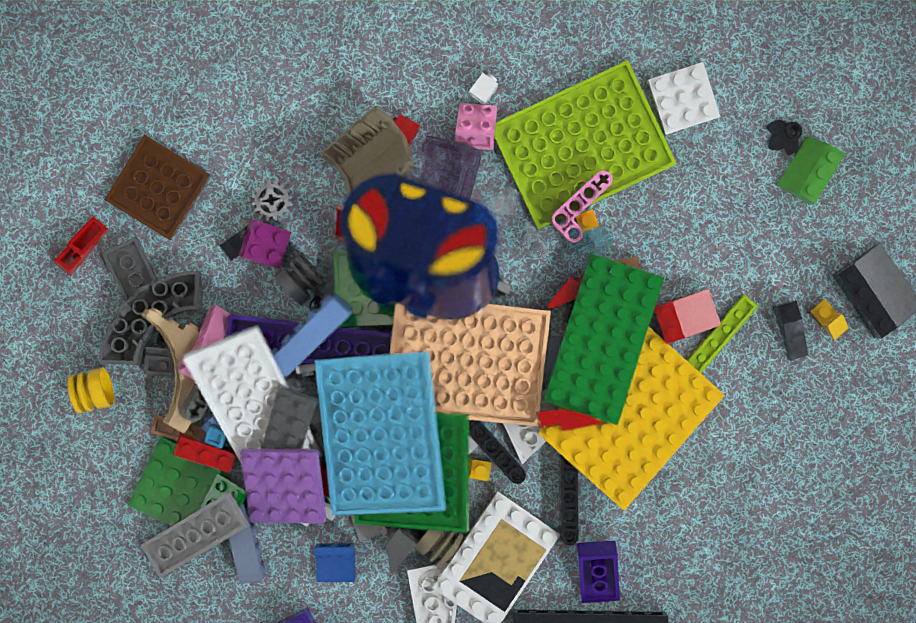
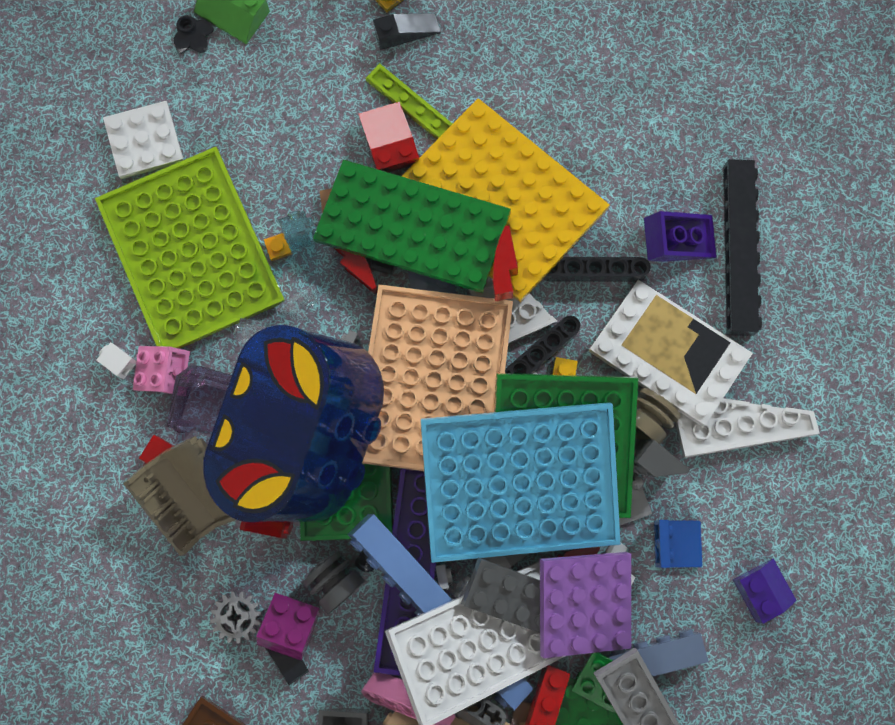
camera: 90 degrees left, 10 degrees down
(215, 436) = (525, 691): dark azure tile -> none
(583, 202) = (254, 247): bright pink beam -> none

